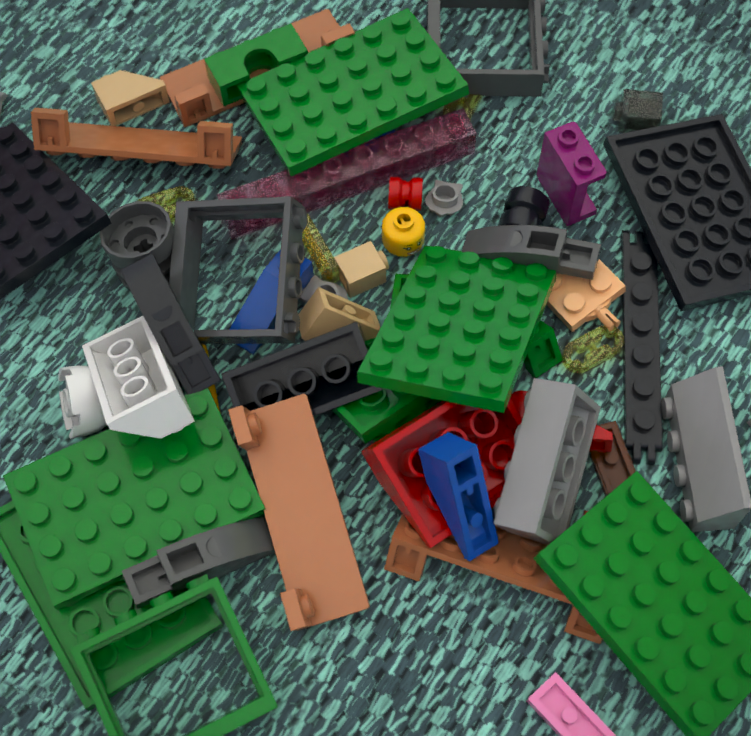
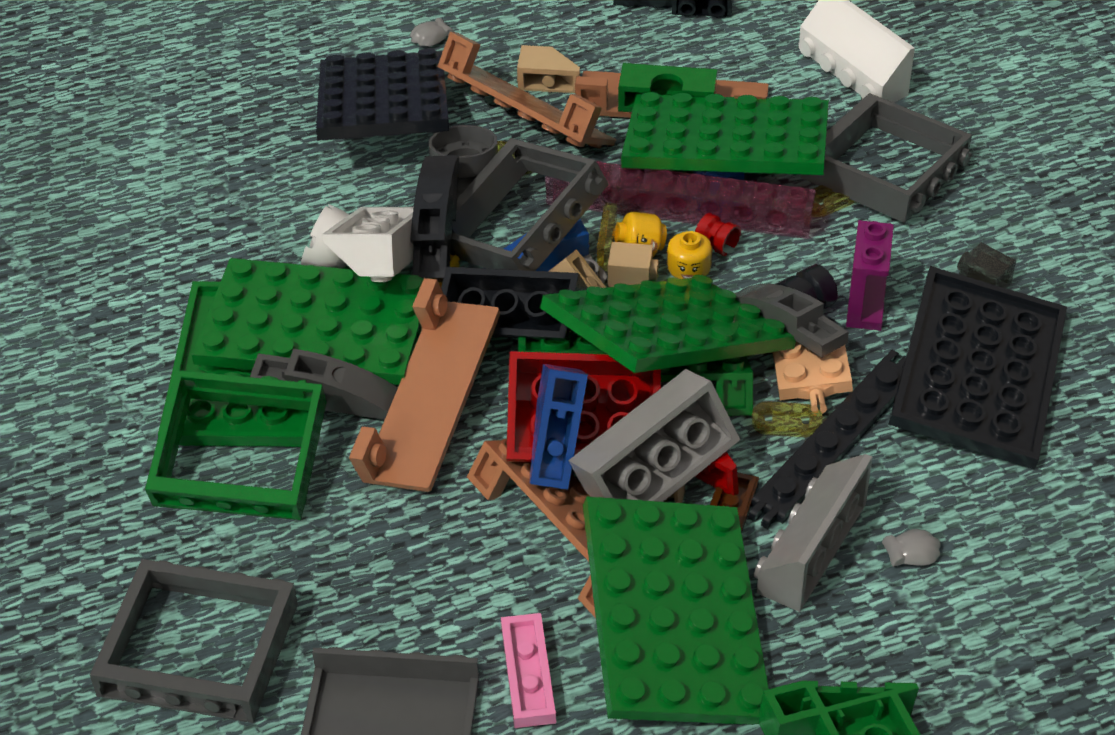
camera: 35 degrees right, 20 degrees down
(346, 230) = (641, 229): none -> yellow head
(444, 198) = (750, 255): light grey animal -> none

